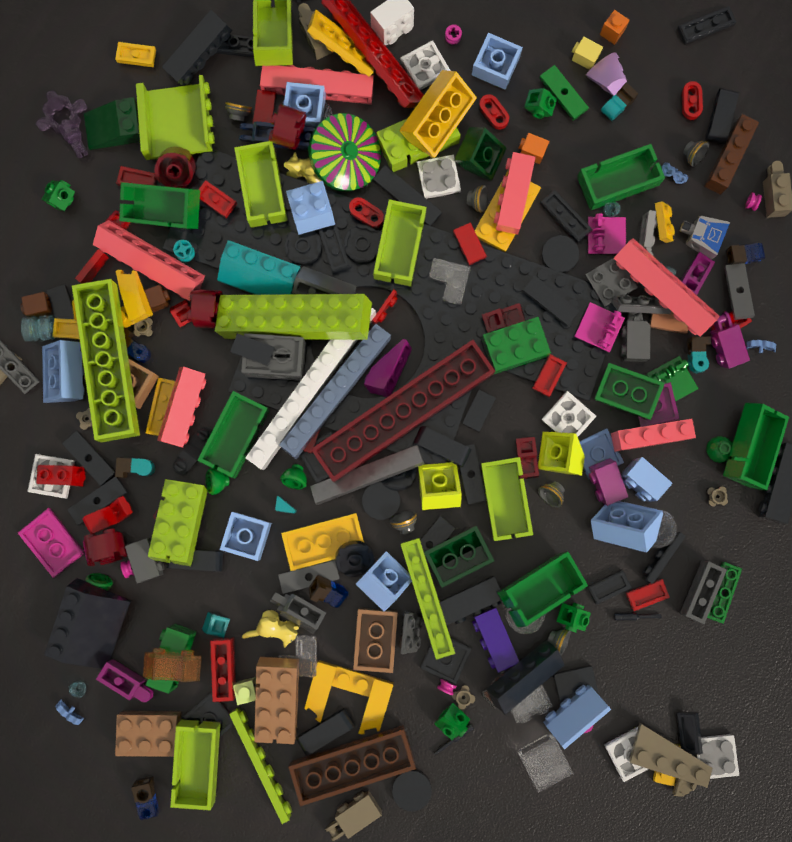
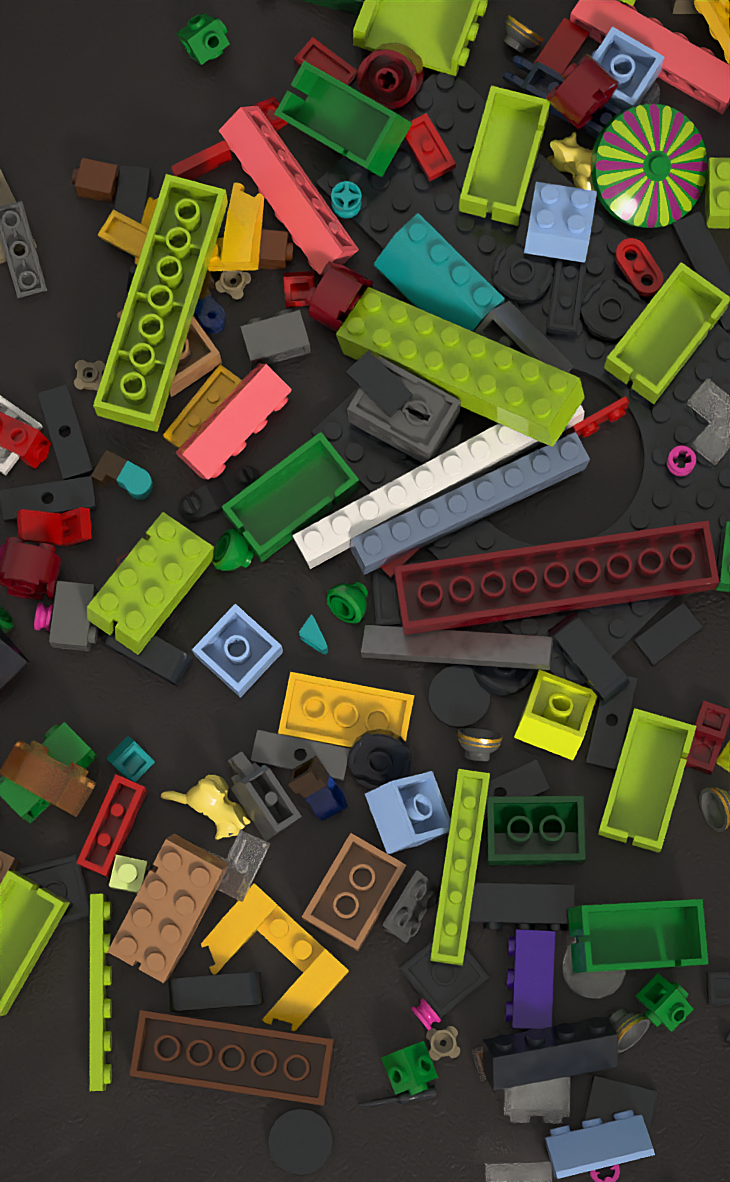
camera: 30 degrees right, 5 degrees down
(35, 328) = (79, 212): clear light blue wheel -> none
(62, 372) = (87, 291): light blue slope -> none
(182, 348) = (275, 338): none -> dark grey brick
(354, 816) = (199, 1135): dark tan brick -> none
(388, 369) = (560, 510): magenta slope -> none
(446, 313) = (689, 453): none -> dark pink bush

